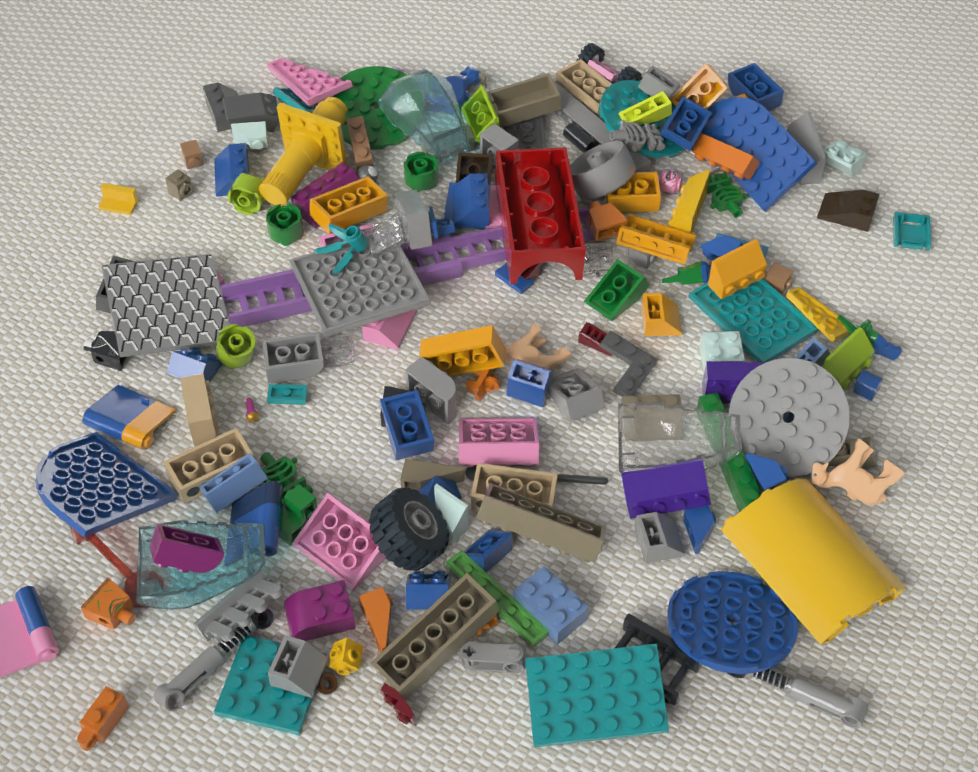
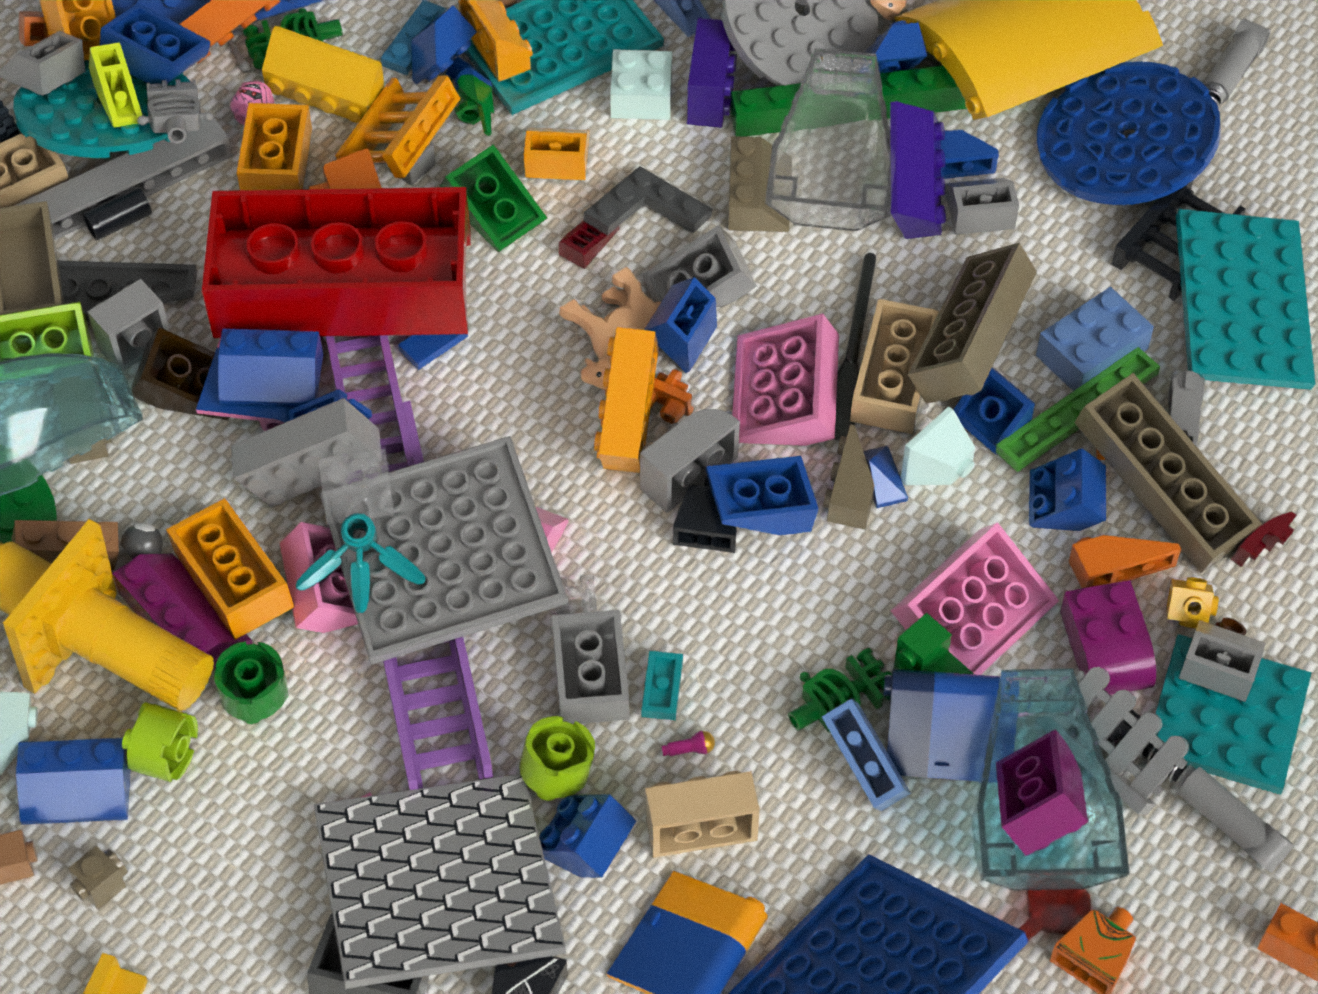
camera: 85 degrees left, 5 degrees up
(203, 462) = (821, 797): tan brick -> none
(408, 529) = (986, 490): black wheel -> none
(421, 171) = (155, 454): green brick -> none
(602, 170) = (210, 163): light grey wheel -> none

